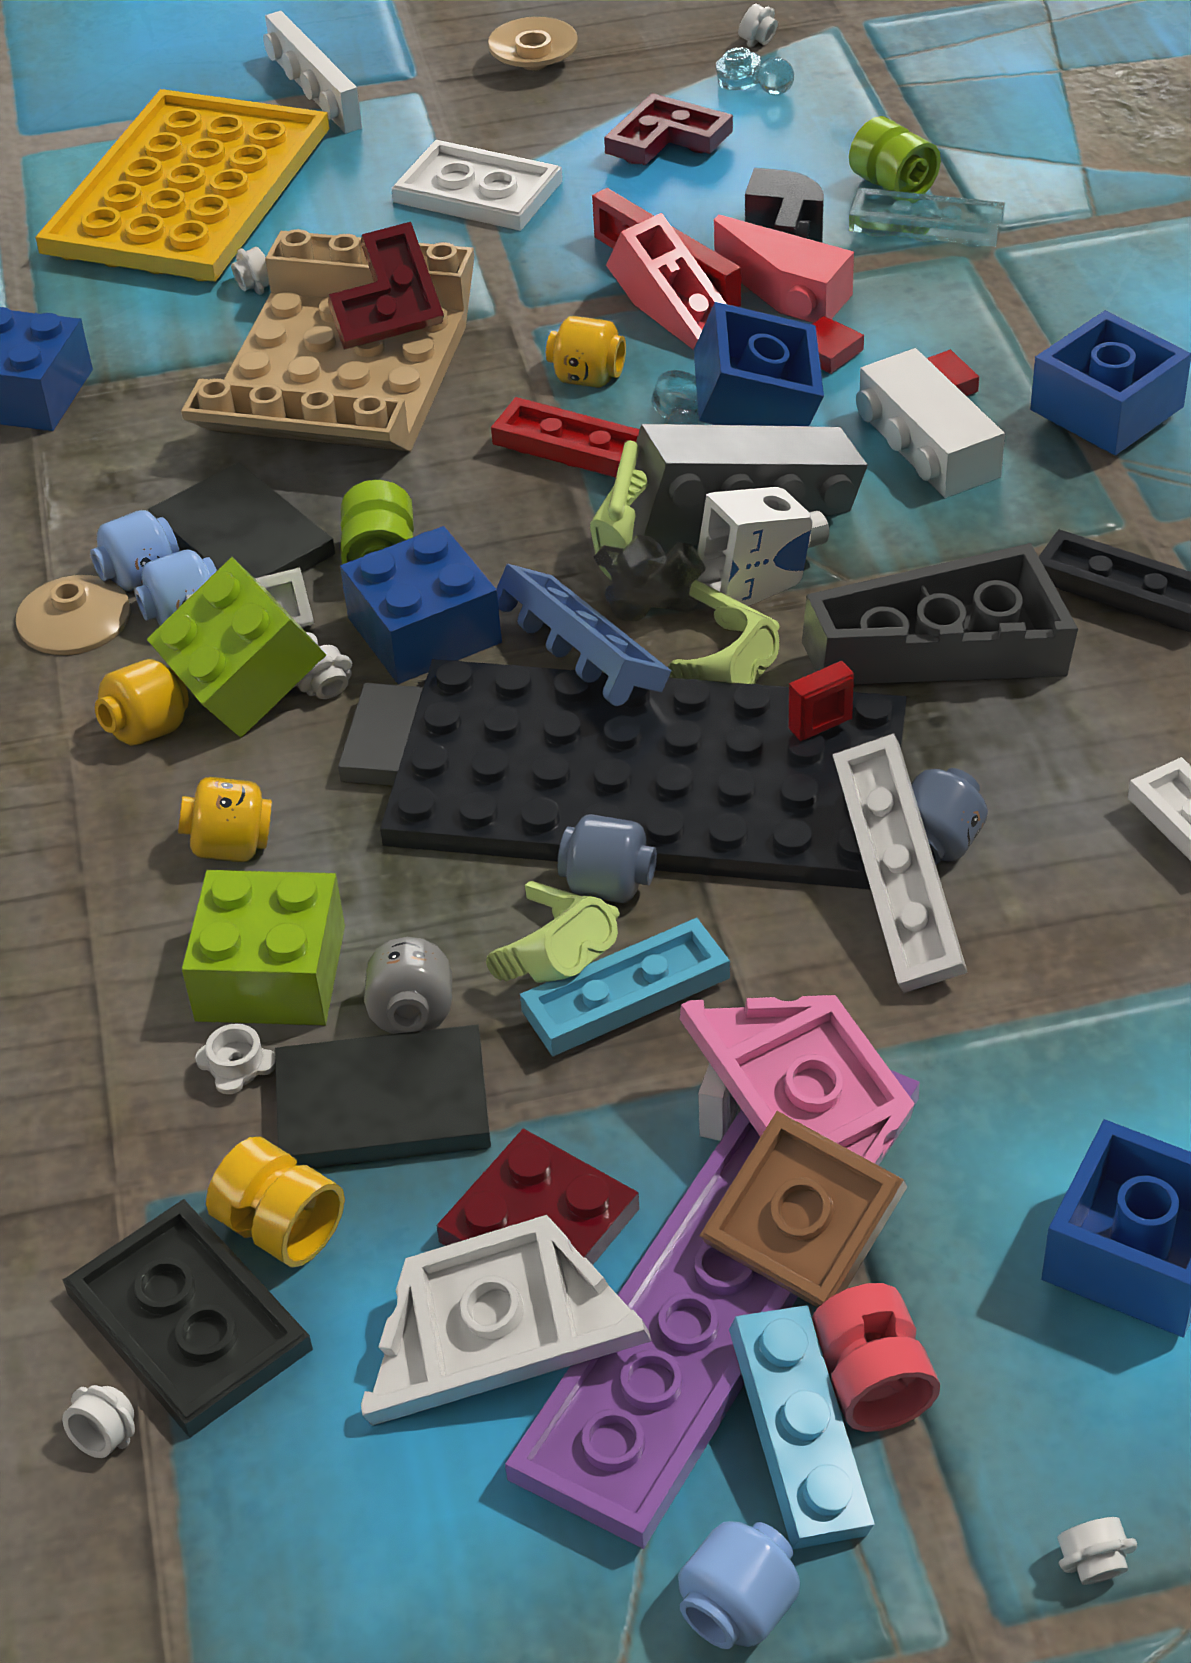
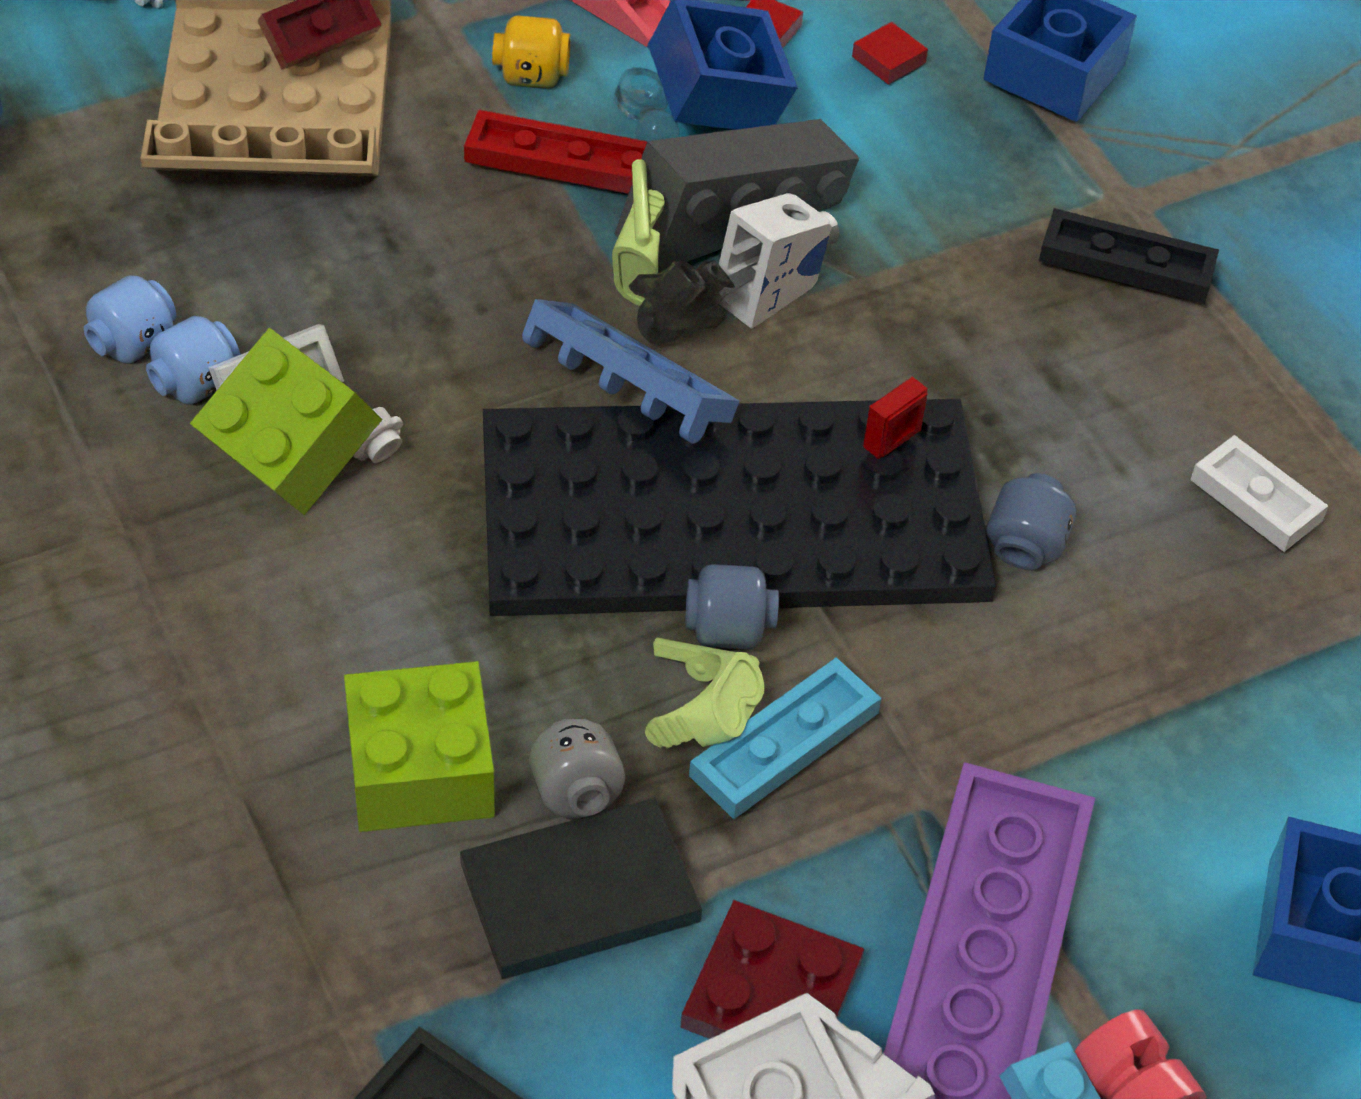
camera: 20 degrees left, 5 degrees up
(73, 615) = (78, 397): tan dish -> none
(141, 702) = (196, 491): yellow head -> none
(226, 819) = (330, 611): yellow head -> none
(235, 1057) = (417, 851): white plate -> none
(244, 520) = (234, 279): pearl dark grey tile -> none
(279, 1204) = (520, 1016): yellow wheel -> none
(374, 518) = (385, 276): lime wheel -> none
(379, 733) = (454, 496): dark grey tile -> none
(421, 603) = (455, 350): blue brick -> none
(716, 1106) = (913, 833): white tile -> none
(743, 659) = (793, 376): yellowish green helmet -> none
(803, 1211) = (1041, 949): medium nougat tile -> none
(806, 1064) = (1006, 825): bright pink wing -> none
(899, 864) = (1015, 577): white plate -> none
(930, 422) = (897, 103): white brick -> none
(945, 622) = (980, 320): dark grey wedge -> none

